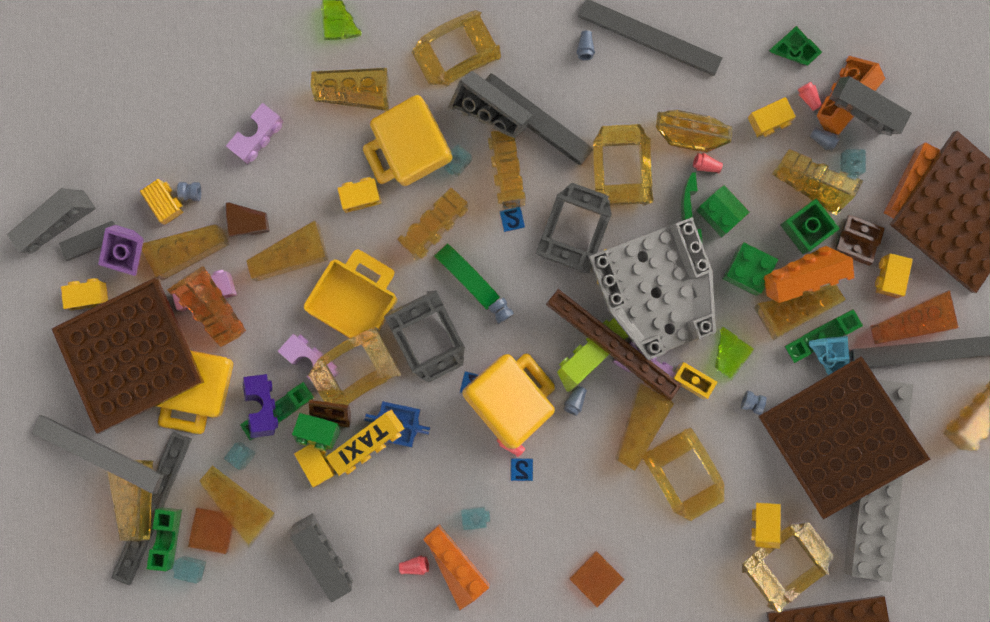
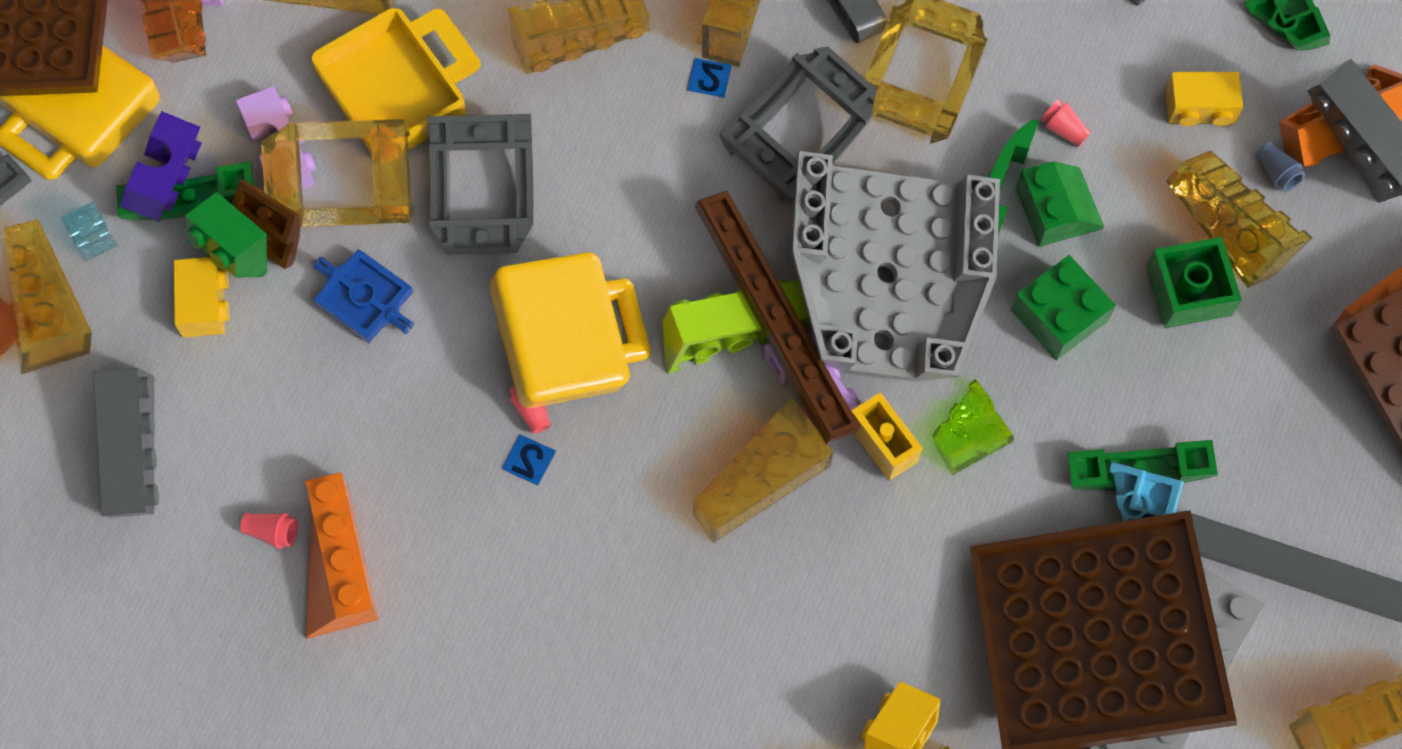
camera: 20 degrees right, 15 degrees down
(365, 442) = (296, 294): yellow brick -> none
(467, 276) = (595, 129): green slope -> none
(469, 523) = (406, 483): clear light blue brick -> none
(503, 314) = (621, 199): sand blue wheel -> none
(575, 401) = (671, 388): sand blue cone -> none
(596, 579) = (563, 692): clear orange tile -> none
(670, 451) = (791, 538): clear yellow wedge -> none
(693, 130) = (1059, 62): clear yellow wedge -> none
(753, 402) = (965, 515): sand blue wheel -> none
(793, 313) = (1117, 403): clear yellow wedge -> none
(808, 274) = (1155, 346): orange wedge -> none
(810, 95) = (1282, 91): coral cone -> none
(858, 158) = (1317, 211): clear light blue brick -> none
(859, 239) = (1272, 346): reddish brown slope -> none
(893, 275) = (1307, 422): yellow brick -> none
(924, 318) = (1325, 512): clear orange wedge -> none

